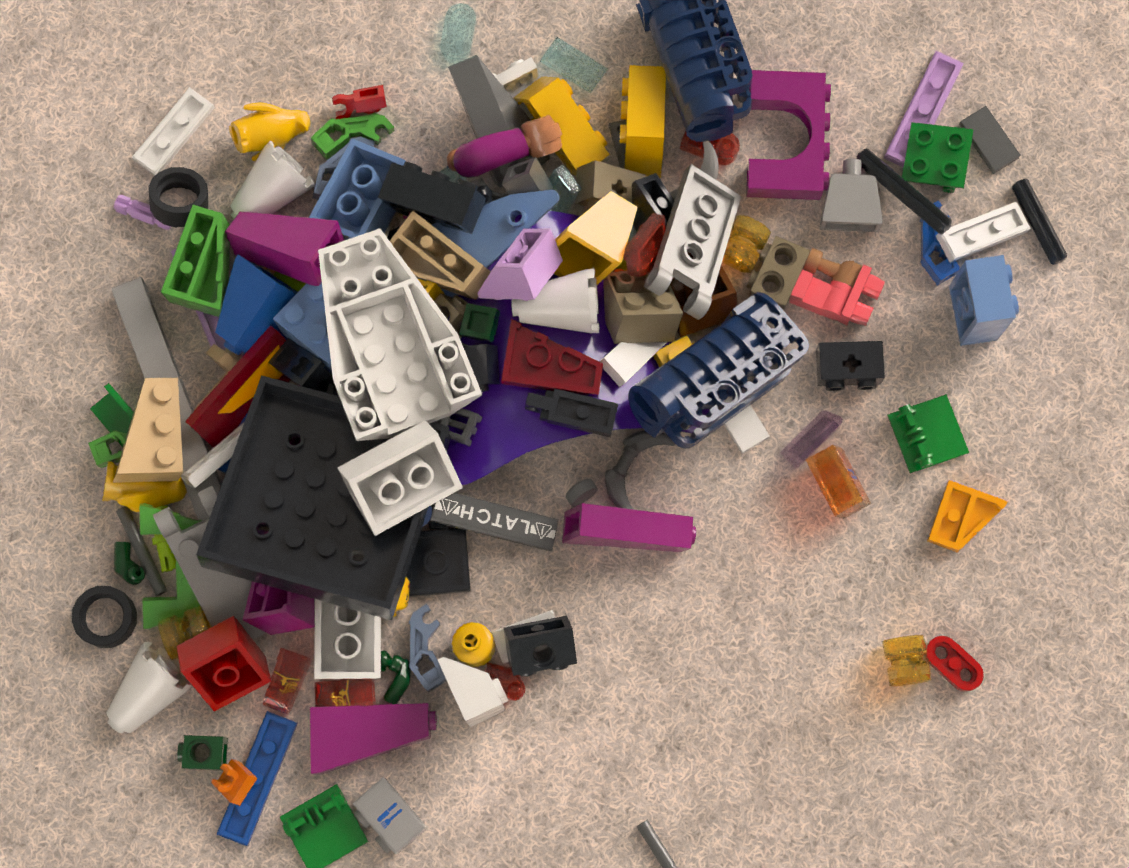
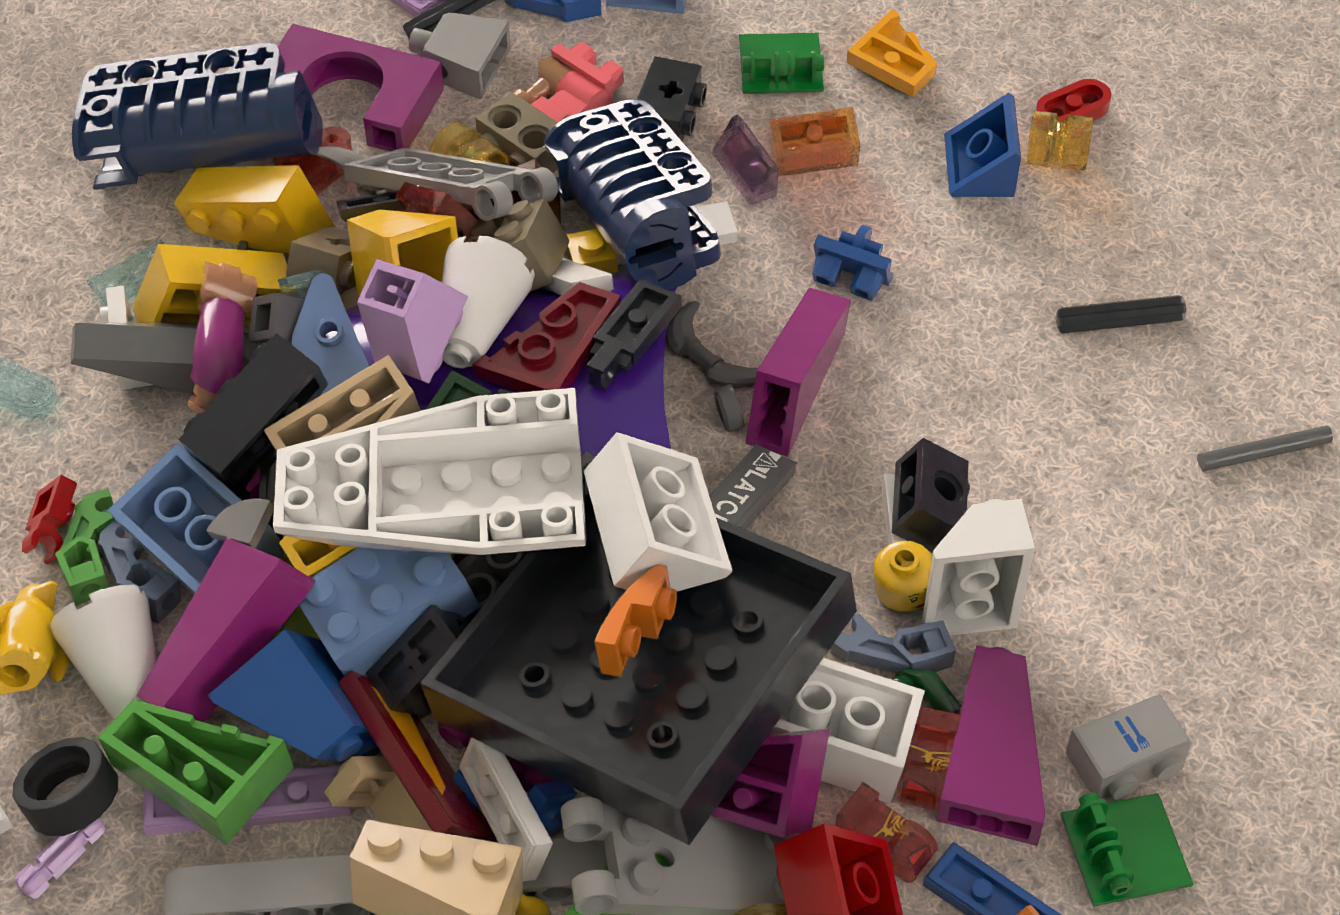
camera: 75 degrees left, 25 degrees down
(328, 491) = (635, 615): none -> orange slope
(351, 223) = (242, 522): none -> light grey tile
(743, 540) = (854, 255): none -> blue hips
(757, 741) = (1120, 314): none -> black axle
(877, 606) = (985, 152): none -> blue slope

